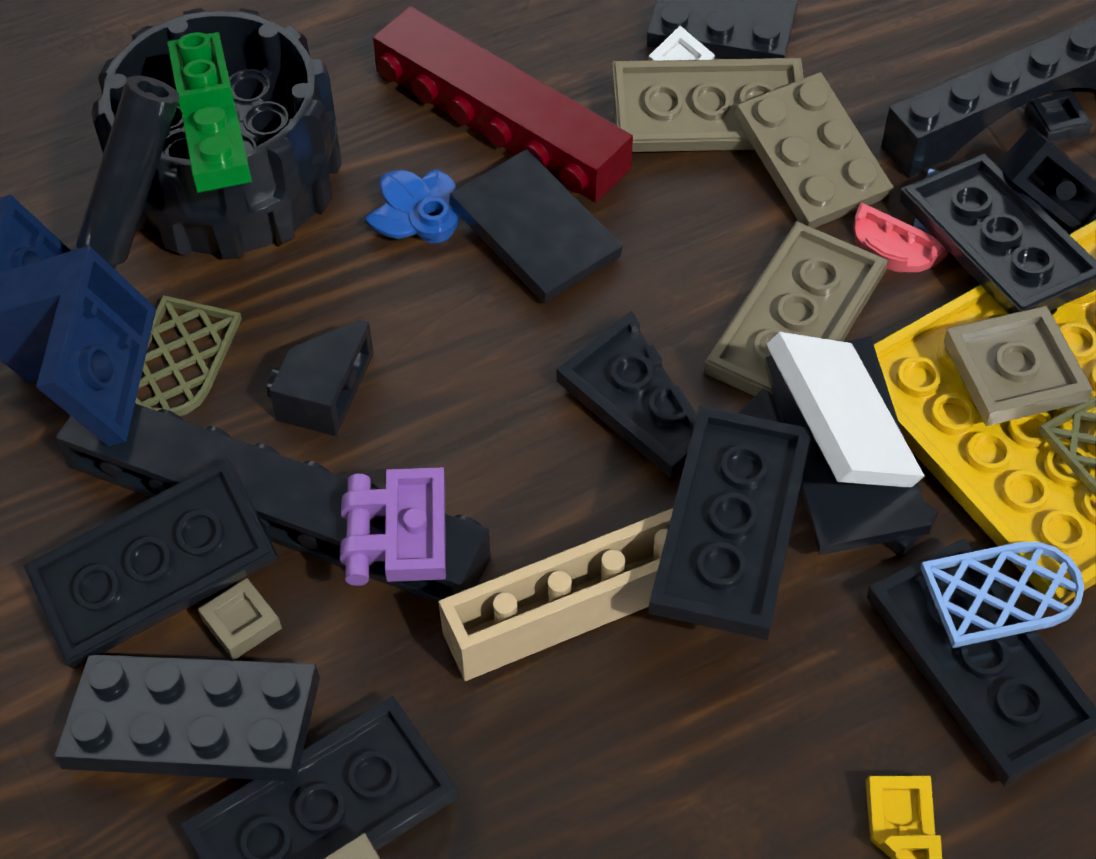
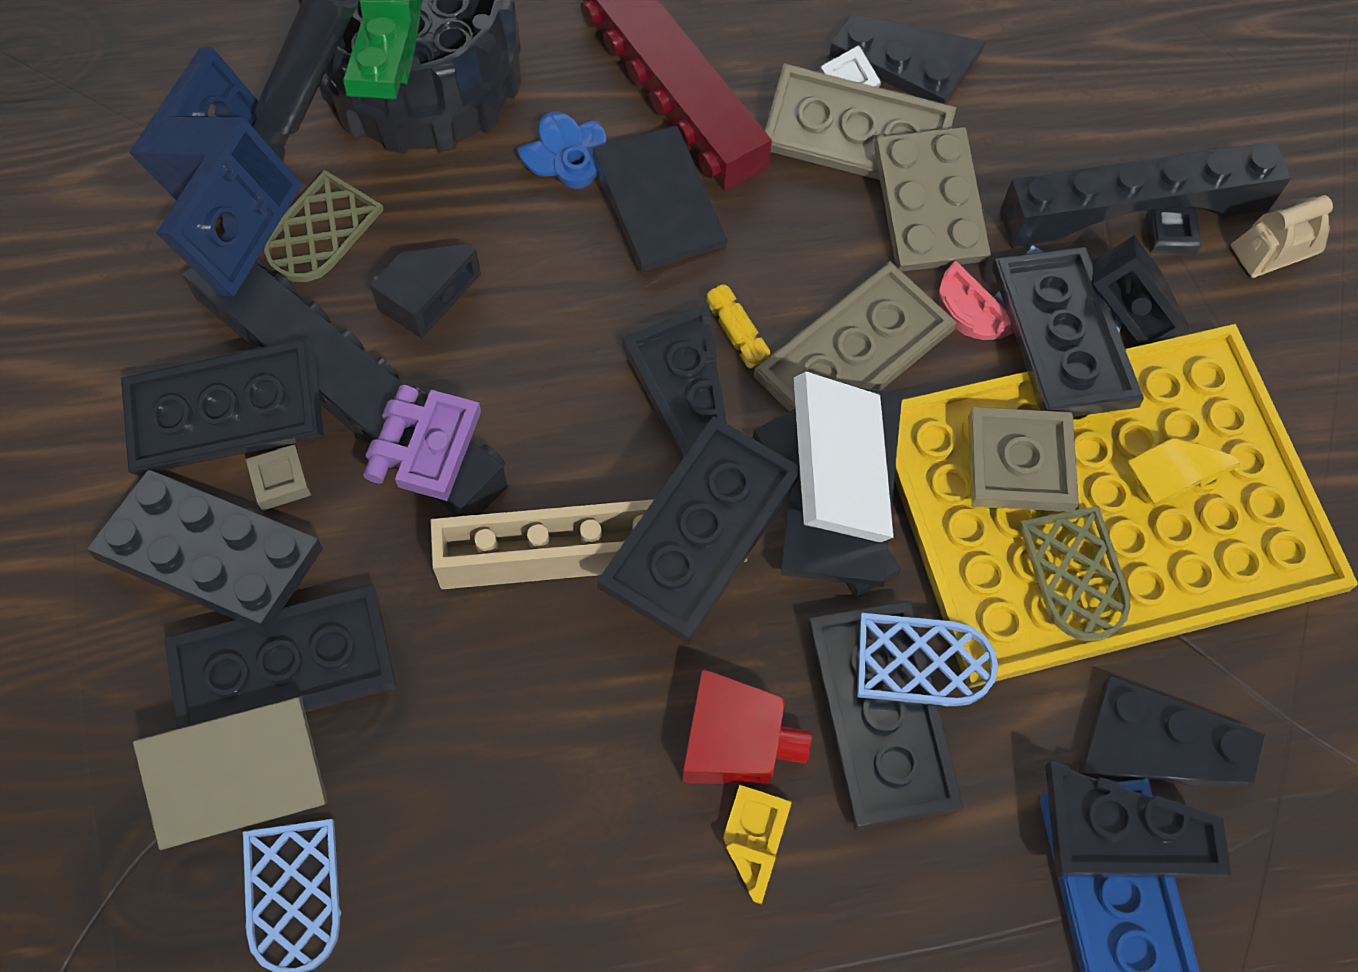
camera: 15 degrees right, 10 degrees up
(669, 327) = (737, 326): none -> yellow axle
(846, 725) = (739, 734): none -> red torso

